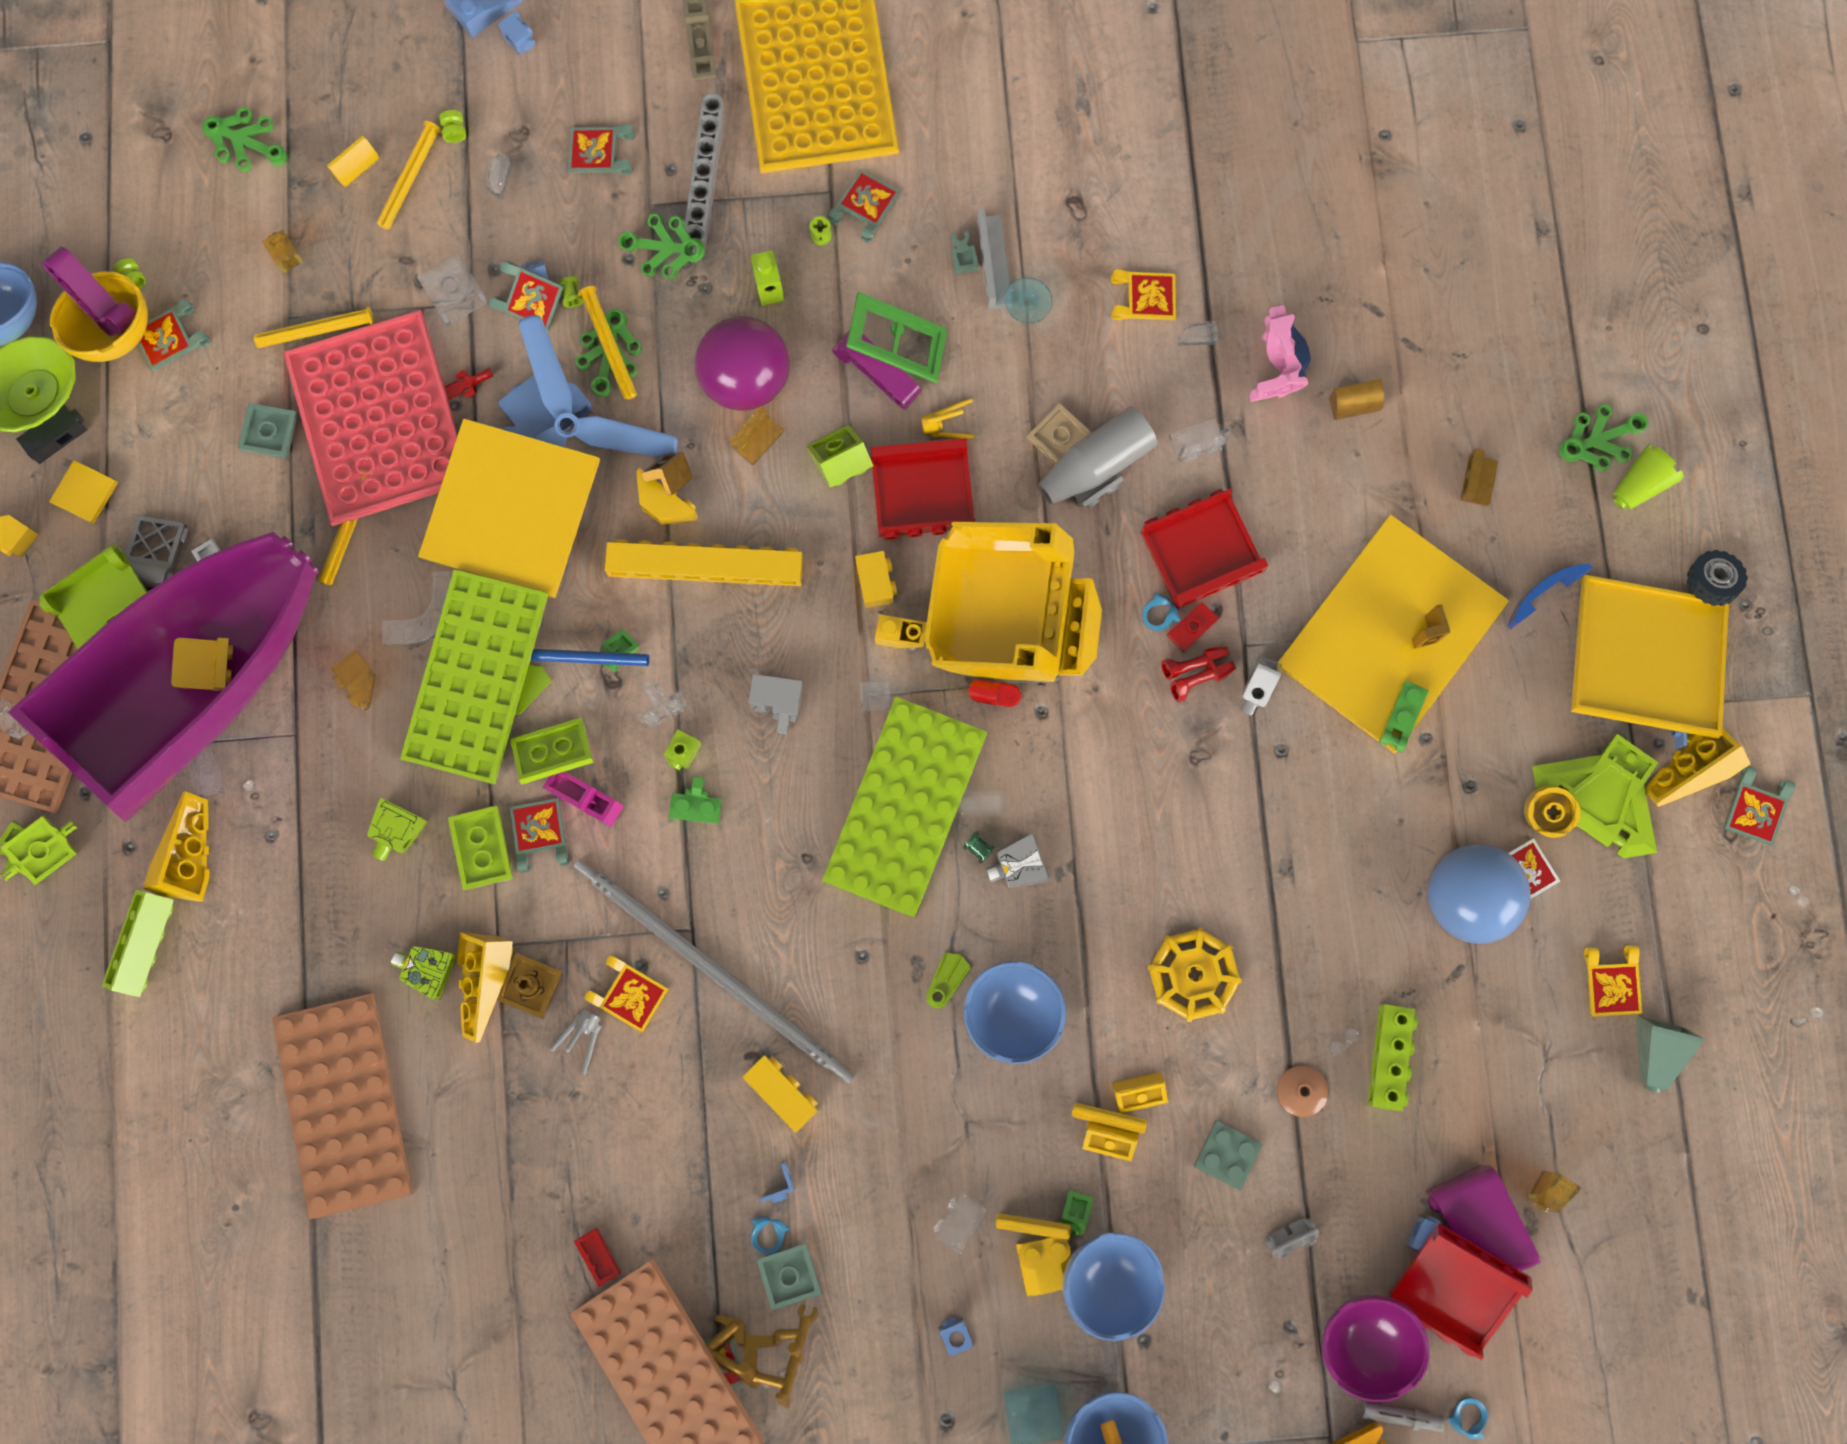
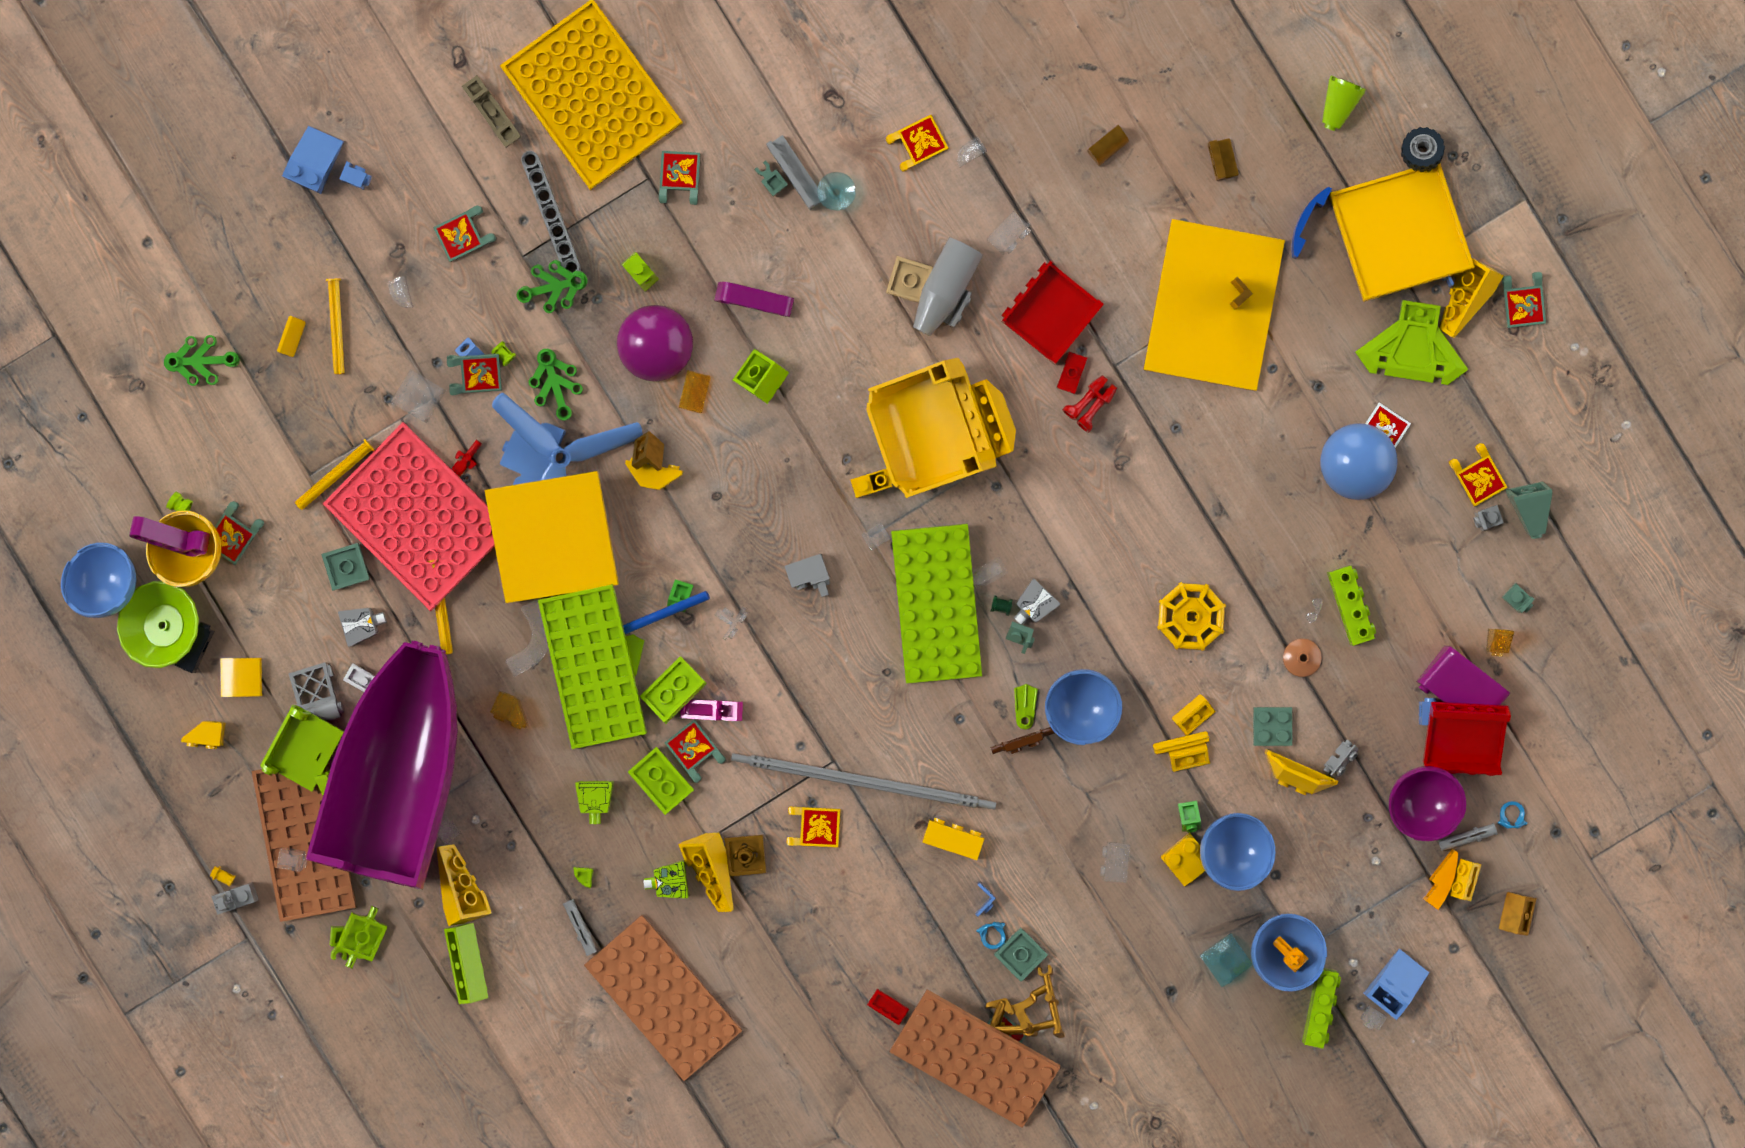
camera: 25 degrees left, 10 degrees up
(201, 663) = (400, 755): yellow bracket -> none
(245, 500) = (360, 624): none -> light grey torso
(282, 251) = (279, 430): clear yellow brick -> none
(293, 970) = (580, 928): none -> light grey pin
(332, 913) = (584, 876): none -> lime tile
(452, 126) = (348, 272): lime wheel -> none
(584, 1023) = (798, 860): light grey plant -> none
(608, 342) = (552, 378): yellow axle -> none
(681, 750) = (763, 643): lime brick -> none
(695, 804) = (791, 675): bright green hinge -> none
(704, 563) = (707, 504): yellow brick -> none
(815, 234) = (653, 213): lime bush -> none
(875, 579) = (832, 453): yellow brick -> none
(900, 317) = (754, 253): bright green door -> none
(912, 1017) = (1015, 744): none -> reddish brown plate
(921, 487) = (832, 370): red panel -> none
(932, 421) = (814, 316): yellow plant -> none
(950, 1326) = (1144, 930): medium blue bracket -> none
(983, 893) = (1021, 635): none -> sand green bracket
(995, 693) = (957, 491): red arm -> none
(1033, 1226) = (1166, 839): yellow axle -> none
(1171, 616) = (1053, 373): dark azure piece -> none
(1230, 1230) = (1297, 775): none -> yellow wedge
(1264, 676) = (1139, 391): torso -> none
(1287, 352) = (1041, 136): bright pink hips -> none
(1403, 715) = (1249, 363): bright green plate -> none
(1561, 822) = (1371, 381): yellow brick -> none
(1596, 1154) = (1518, 599): none -> sand green bracket
(1599, 439) = (1293, 85): bright green plant -> none
(1603, 1038) = (1488, 518): none -> light grey bracket

